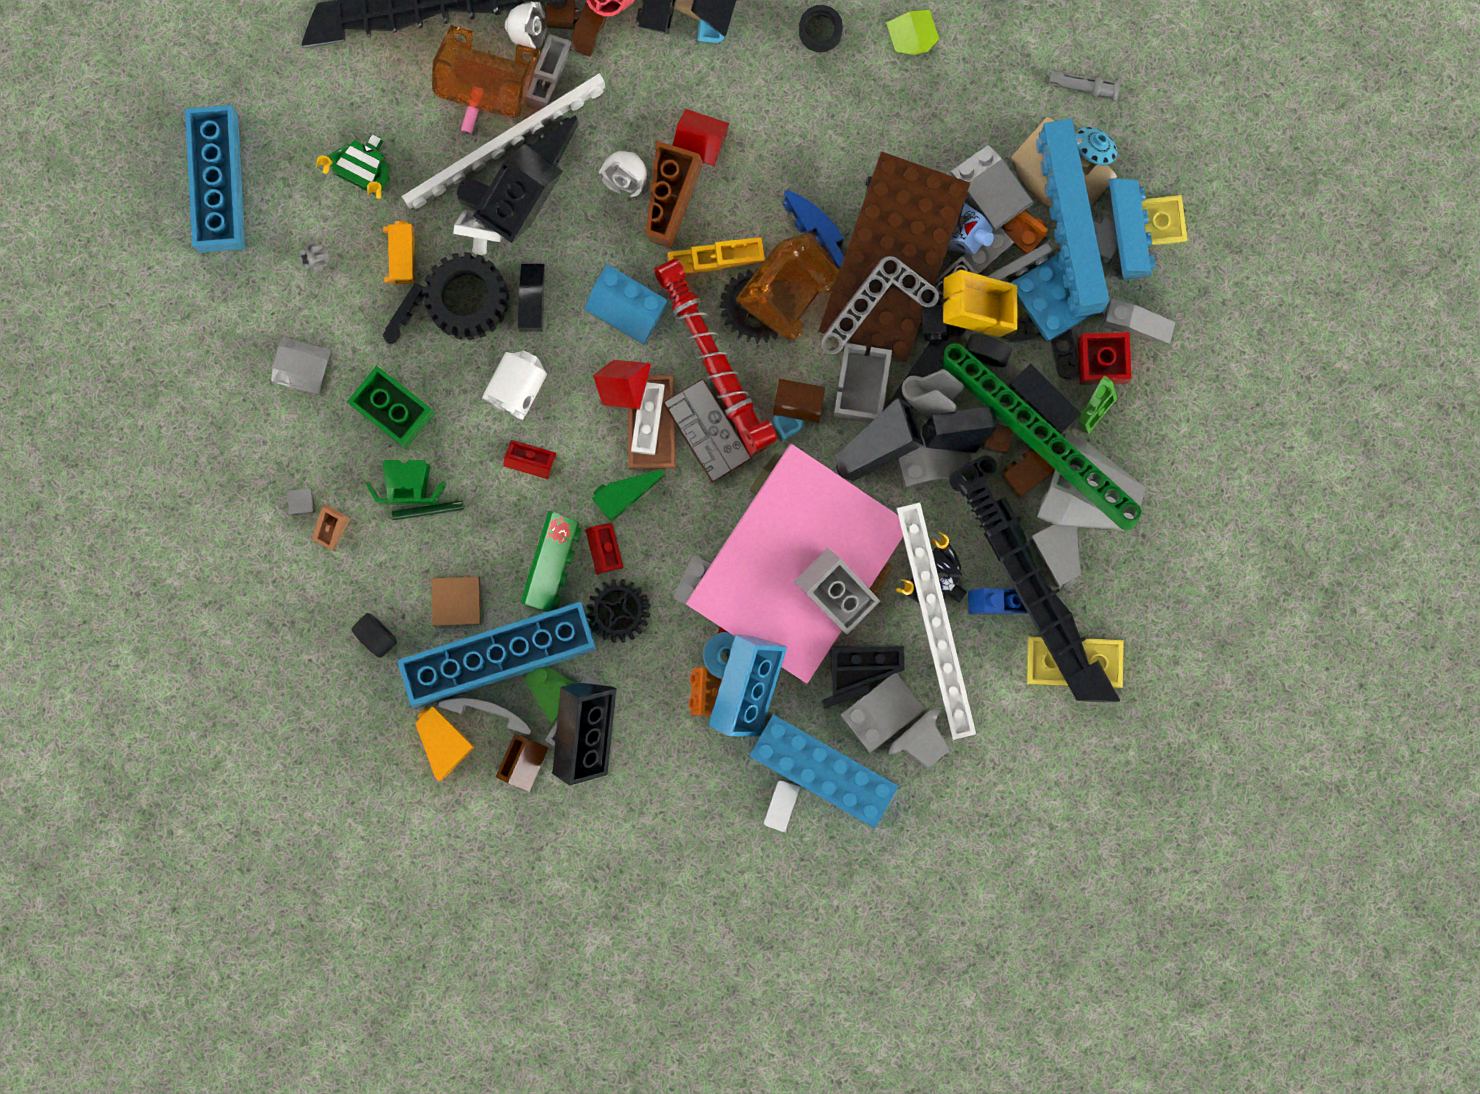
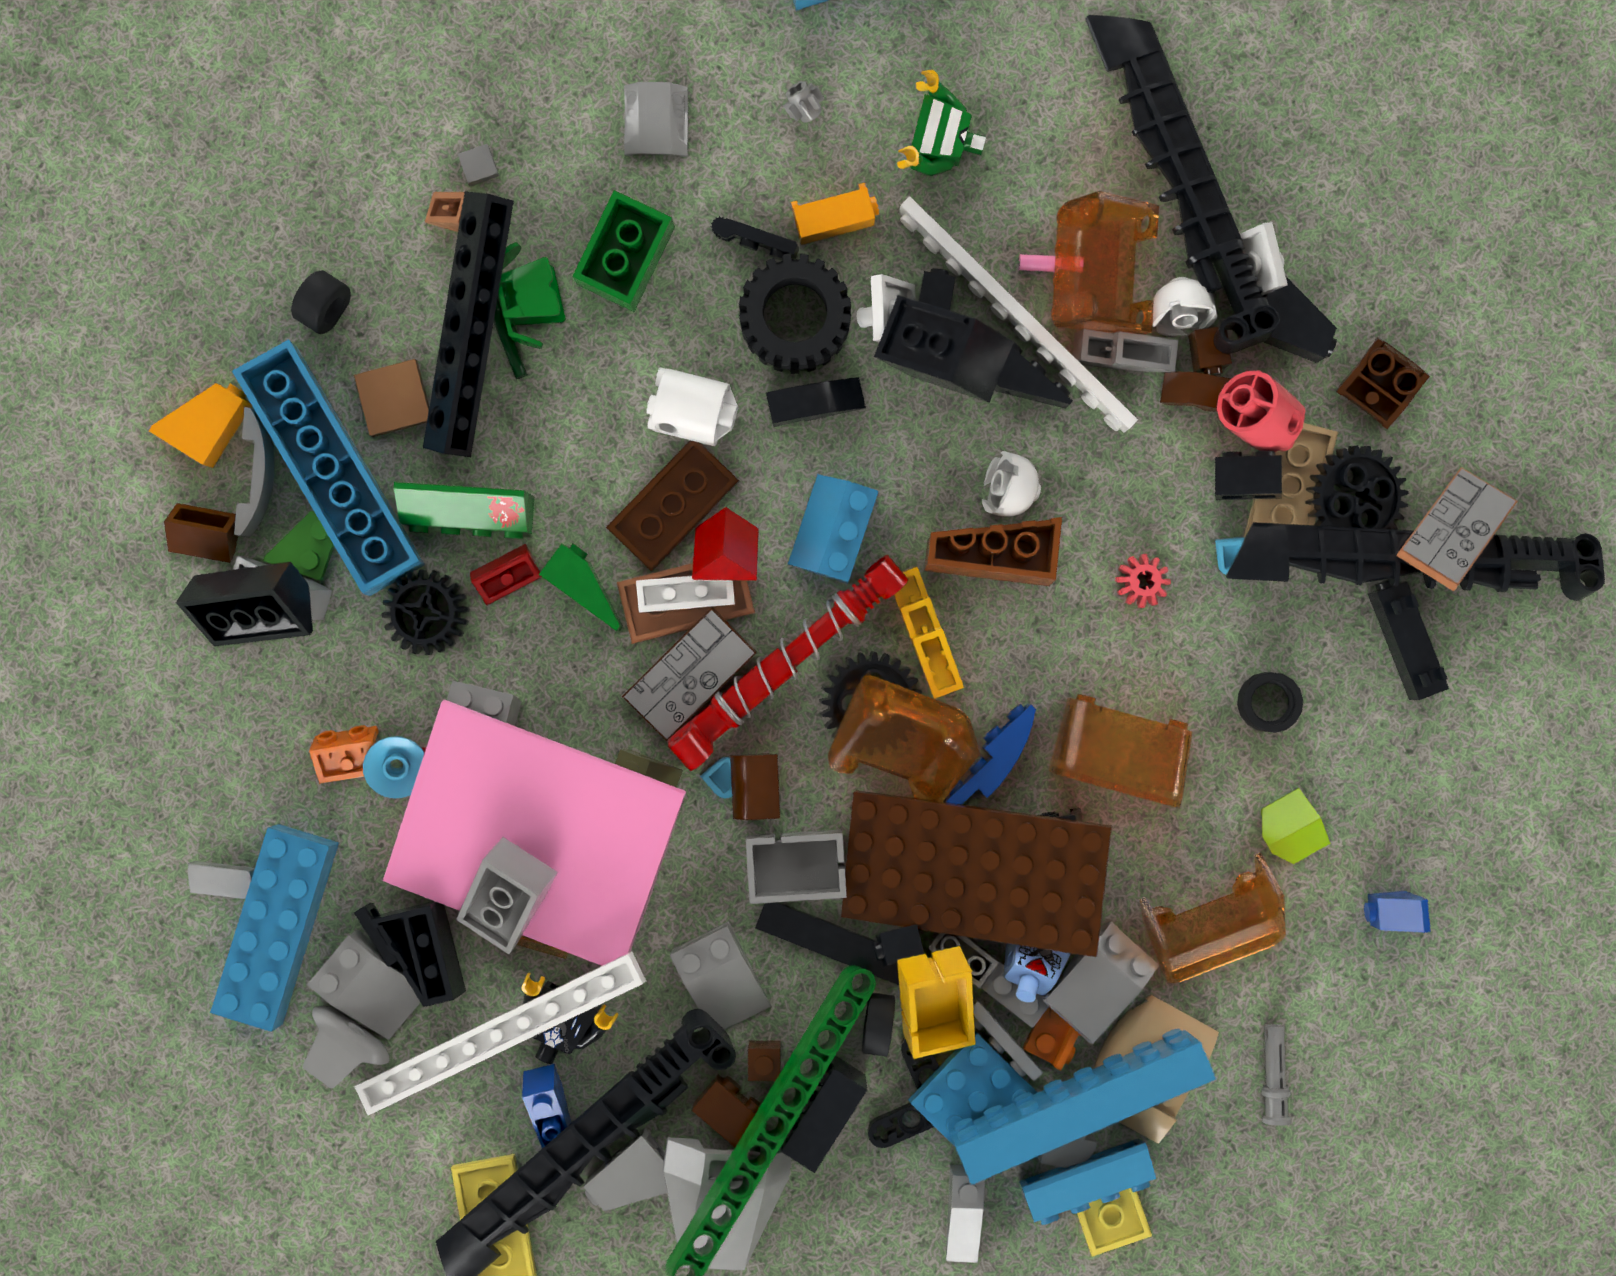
camera: 80 degrees right, 5 degrees up
(417, 528) = (468, 323): none -> black brick
(529, 459) = (601, 449): red slope -> none
(581, 416) = (672, 504): none -> reddish brown tile
(700, 135) = (1085, 574): red slope -> none
(714, 104) = (1131, 582): none -> coral gear
(747, 686) = (355, 804): dark azure slope -> none
(831, 137) = (1122, 751): none -> clear orange windscreen
(872, 298) = (908, 858): light grey beam -> none
(881, 442) = (721, 913): black slope -> none
(932, 393) = (805, 971): light grey piece -> none
(960, 429) = (759, 1012): black slope -> none
(973, 95) = (1220, 929): none -> clear orange windscreen
(1096, 146) = (1192, 1111): medium azure dish -> none
(1098, 405) = (842, 1187): bright green wing -> none
(1104, 356) = (902, 1182): red brick -> none

